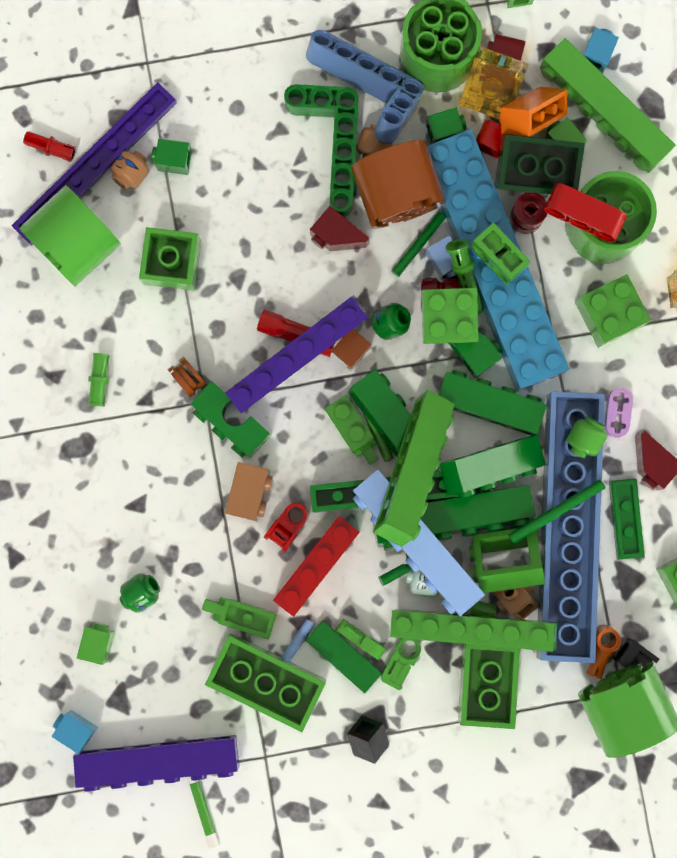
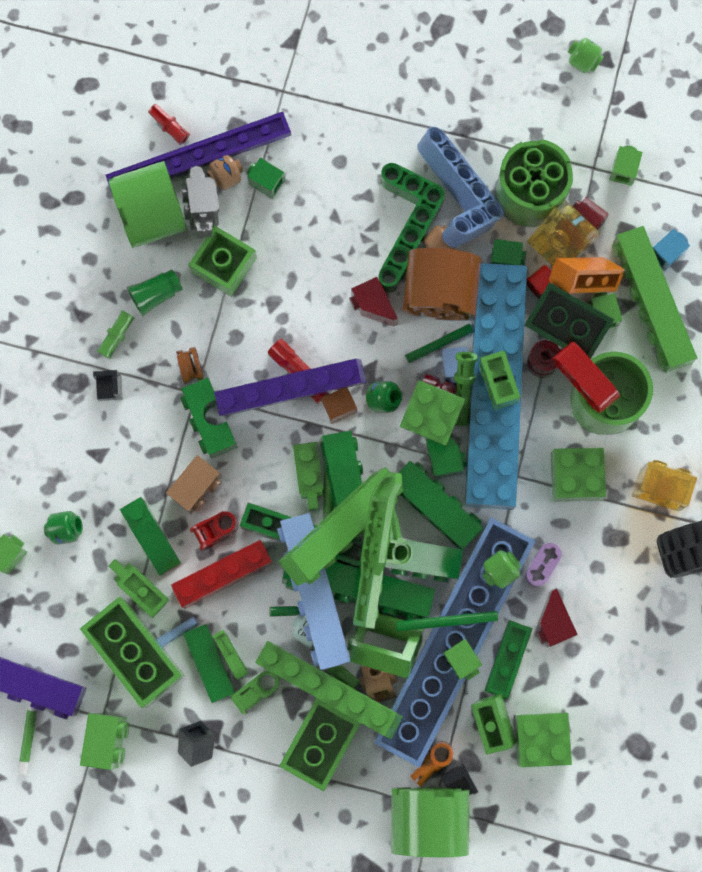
camera: 25 degrees right, 5 degrees down
(116, 319) = (154, 291): none -> green plant
(116, 433) = (108, 385): none -> black panel
(122, 210) = (201, 202): none -> hinge
(228, 561) = (150, 535): none -> green slope
(280, 781) = (104, 741): none -> bright green brick
(465, 471) = (379, 544): none -> bright green piece
(590, 542) = (463, 660): none -> bright green brick
(644, 587) = (493, 724): none -> bright green brick

